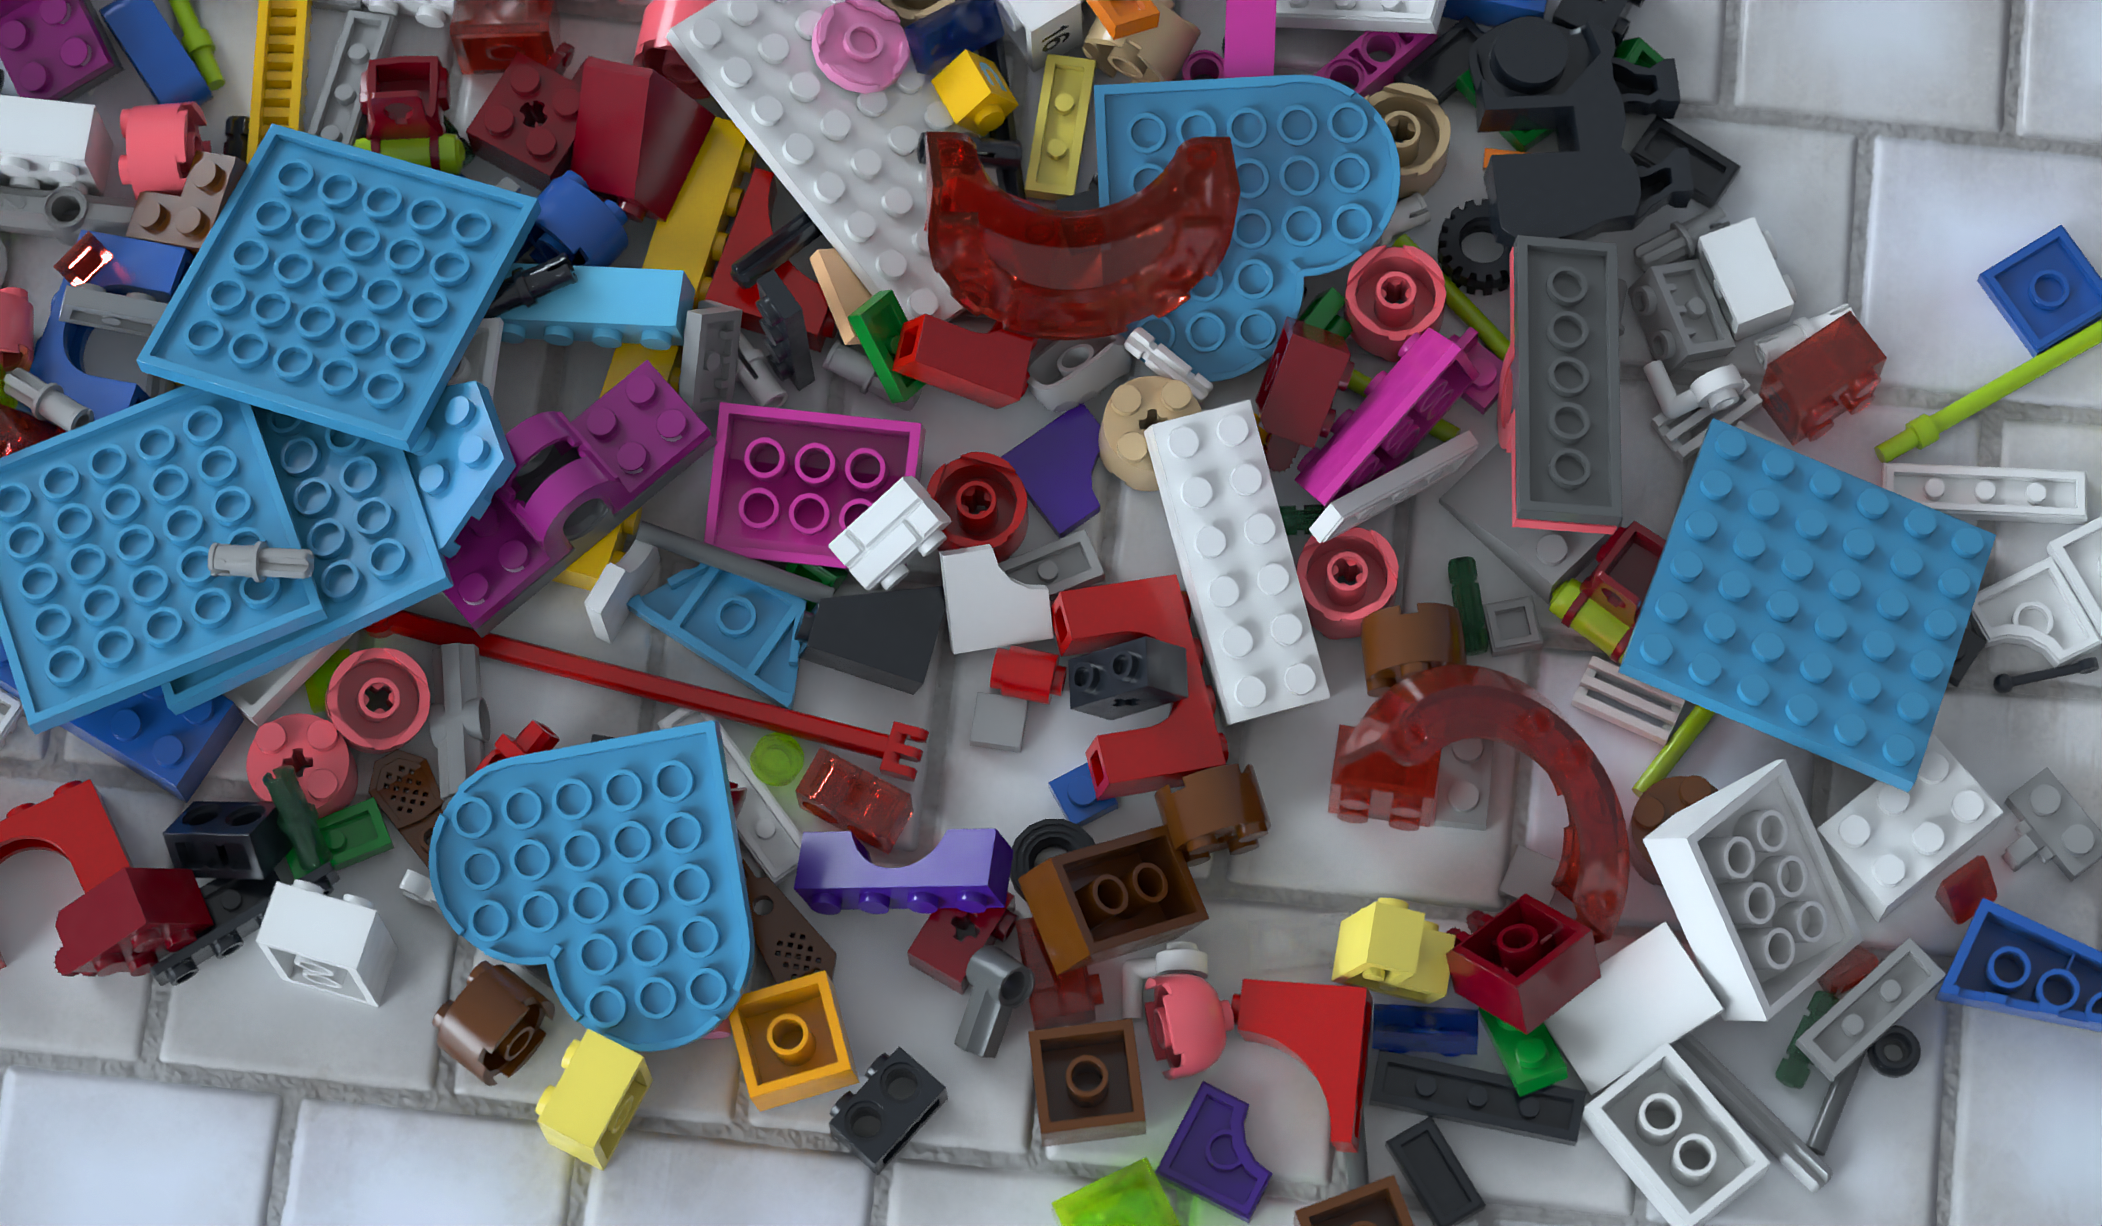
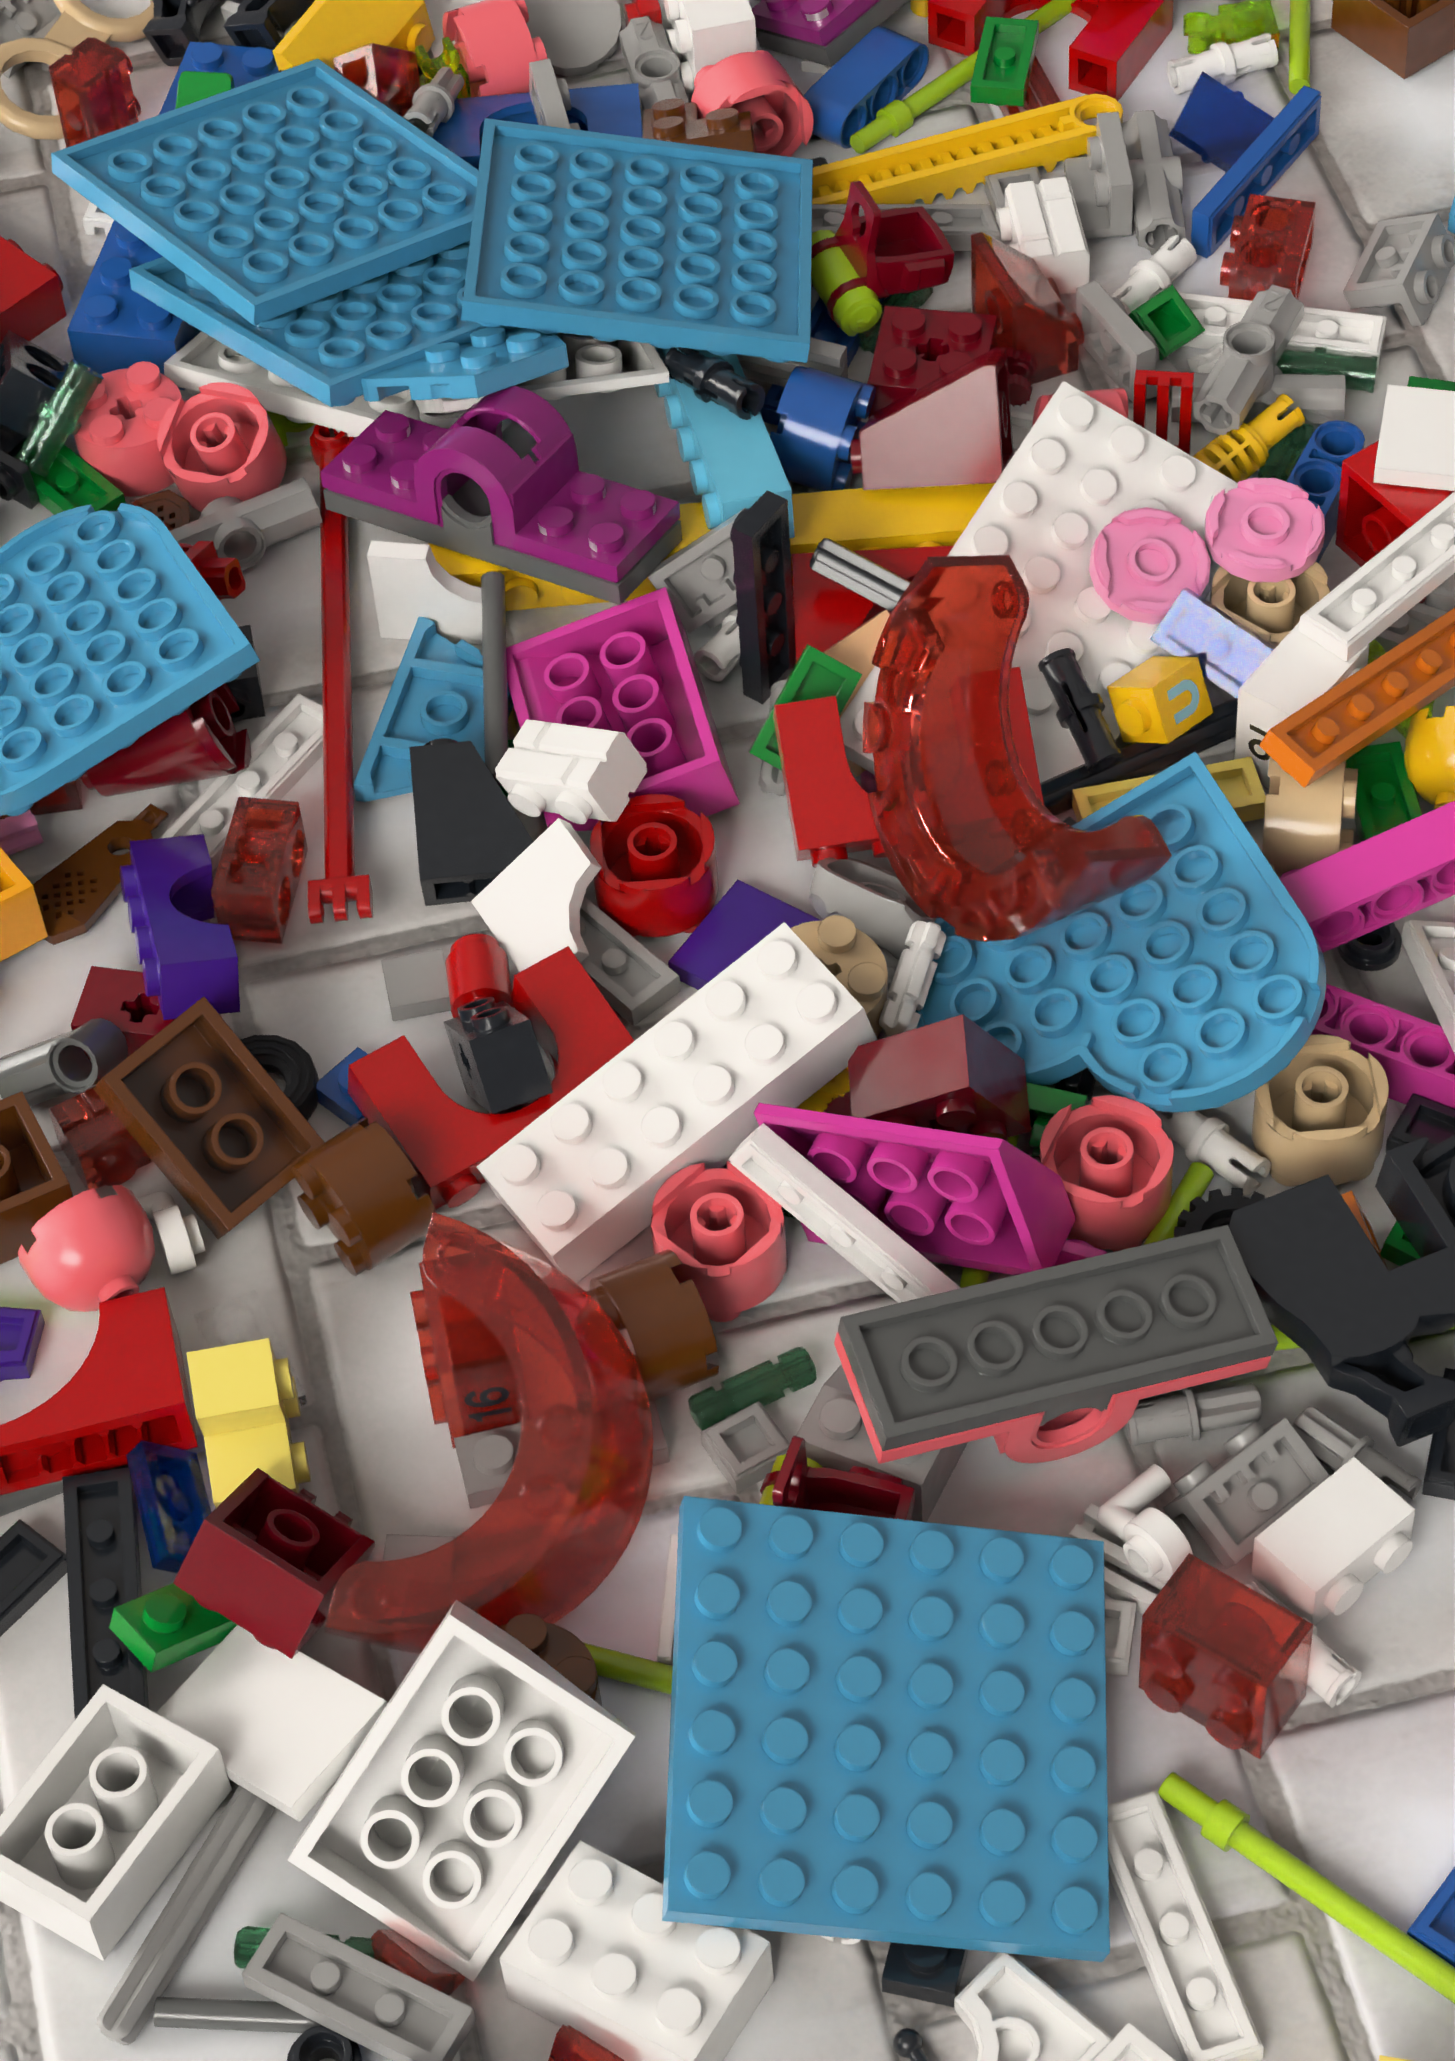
camera: 70 degrees right, 20 degrees down
(83, 260) = (596, 77): clear red slope -> none
(259, 561) = (286, 243): light grey axle -> none
(777, 759) = (299, 788): clear neon green tile -> none

